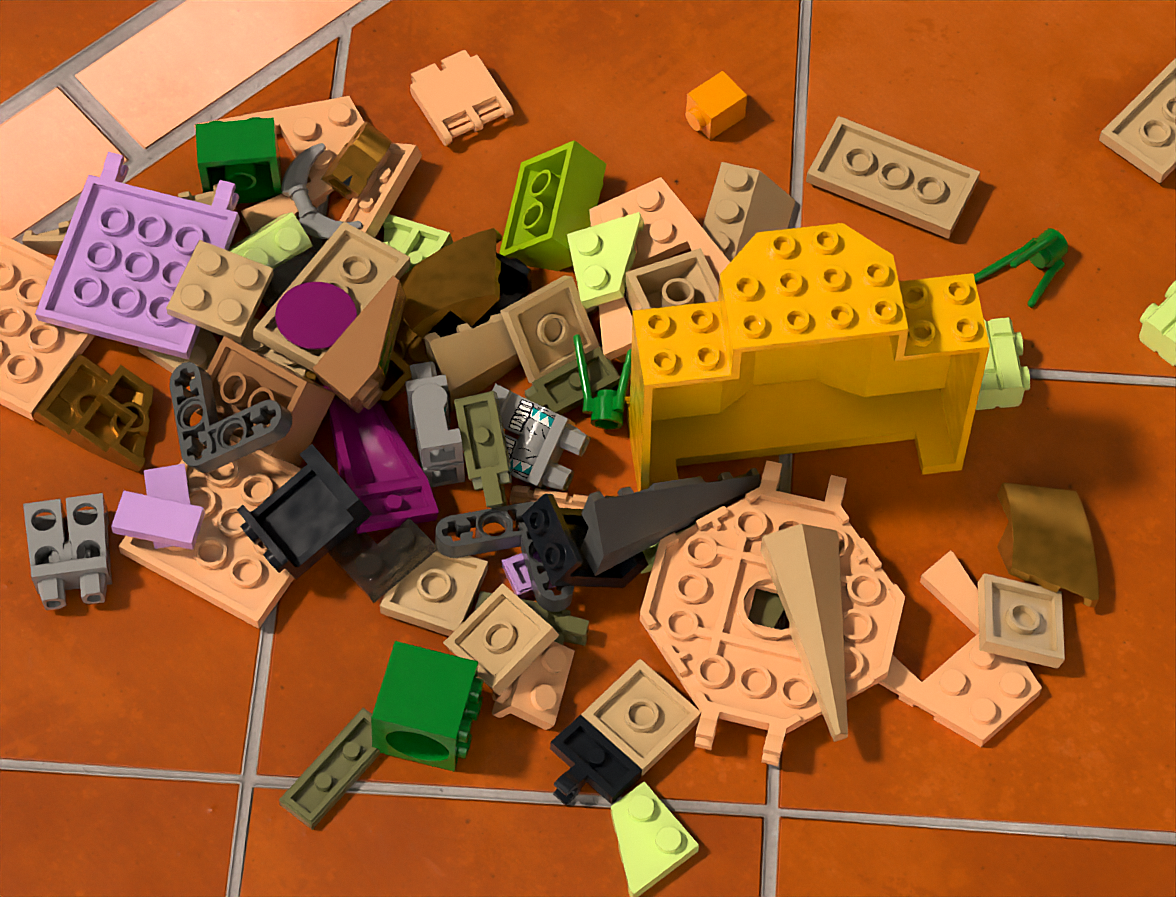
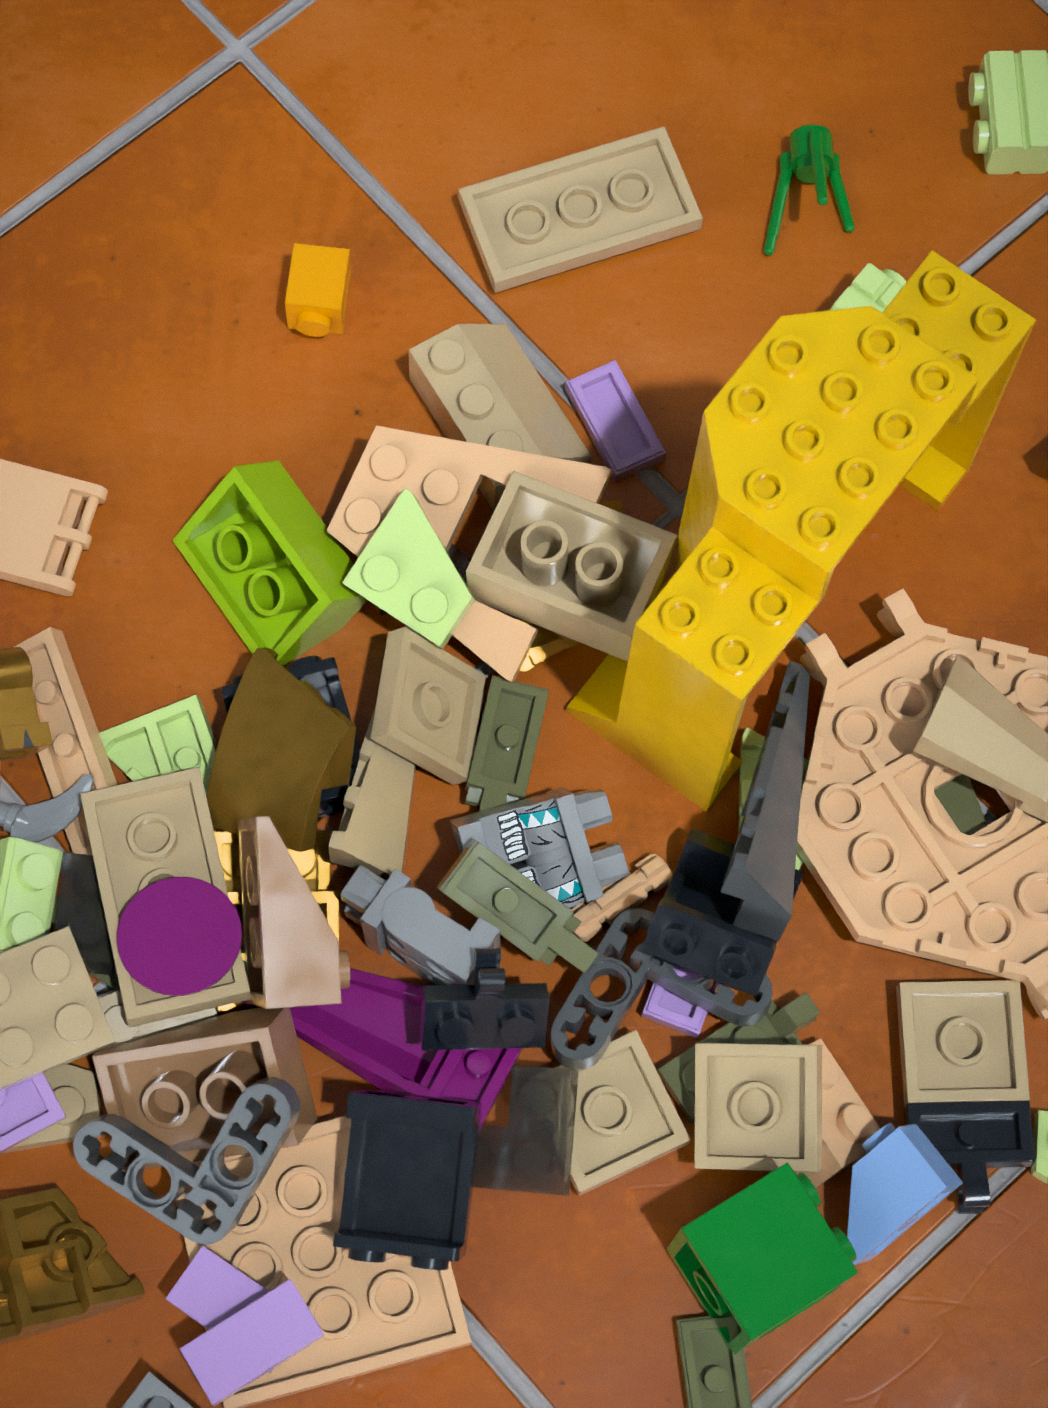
camera: 50 degrees left, 10 degrees up
(416, 475) = (486, 1012): none -> black plate
(523, 740) = (894, 1187): none -> light blue slope
(609, 405) = (575, 732): green plant -> none

